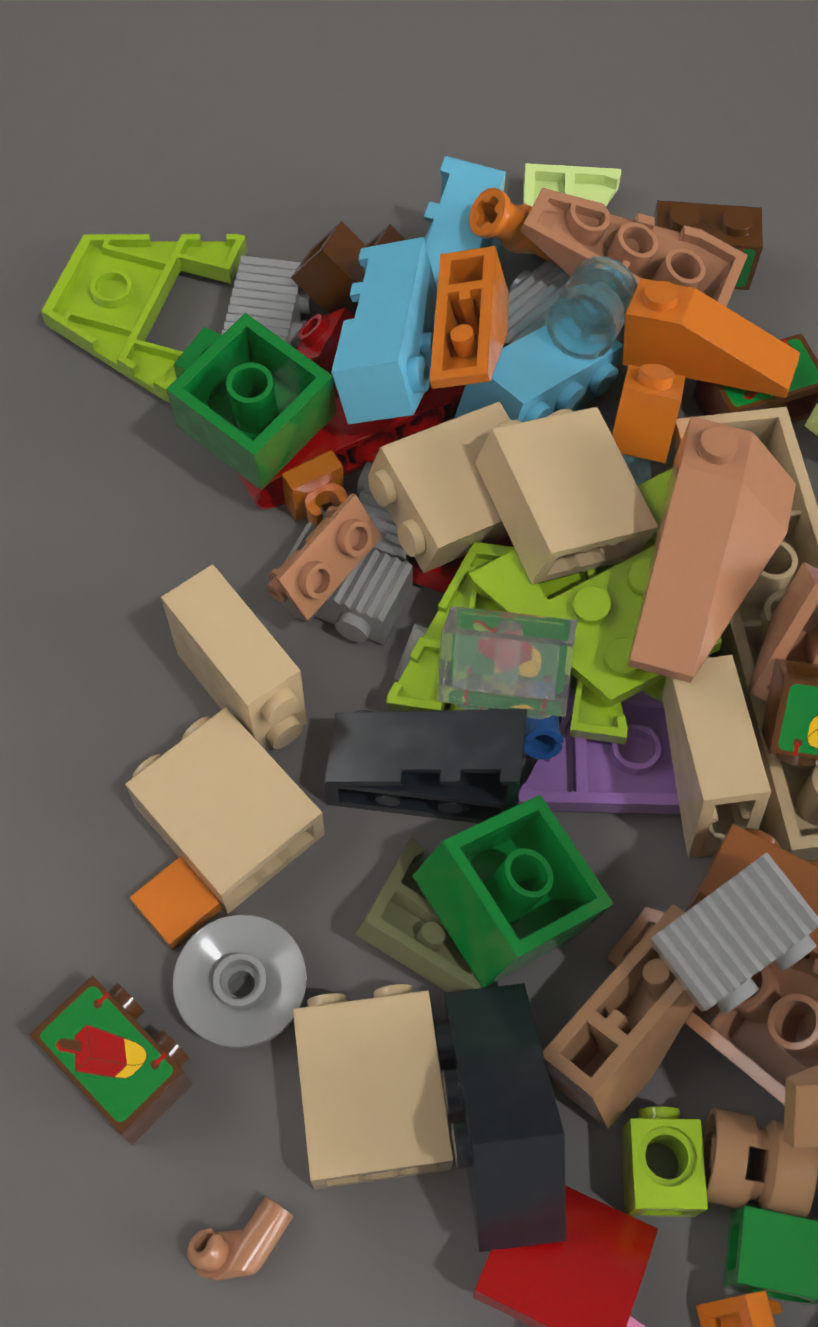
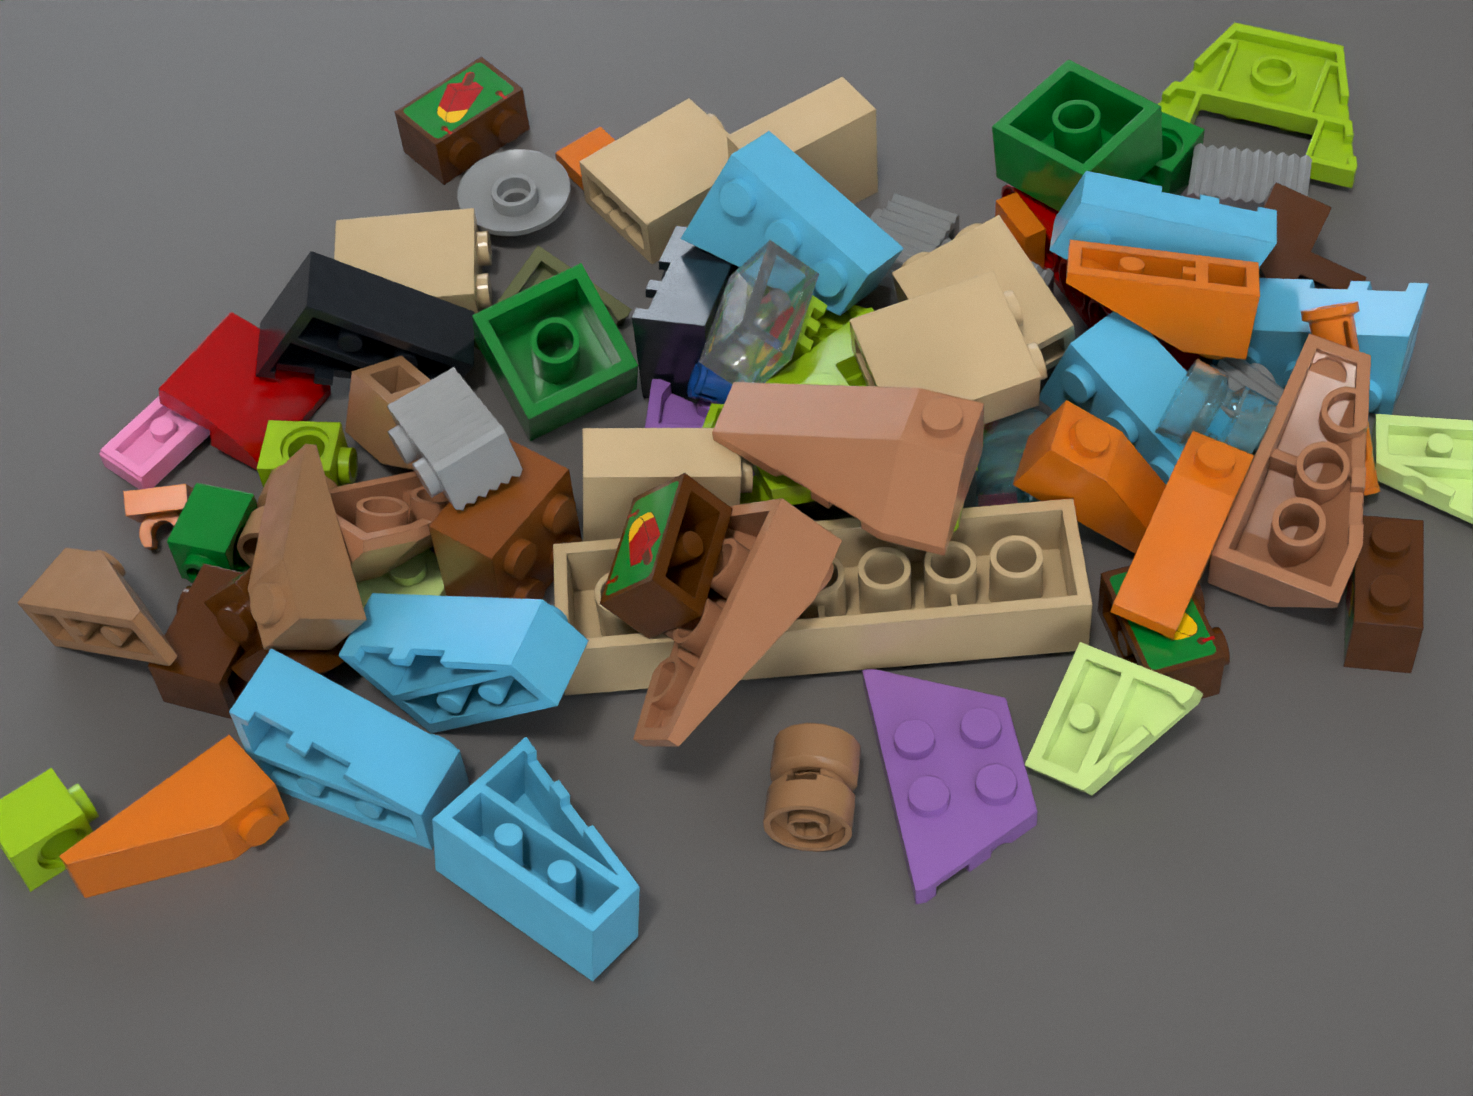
camera: 100 degrees right, 10 degrees down
(239, 1251) = (306, 205): nougat arm -> none
(326, 558) = (903, 209): nougat hinge -> none
(371, 647) = (780, 198): none -> medium azure wedge

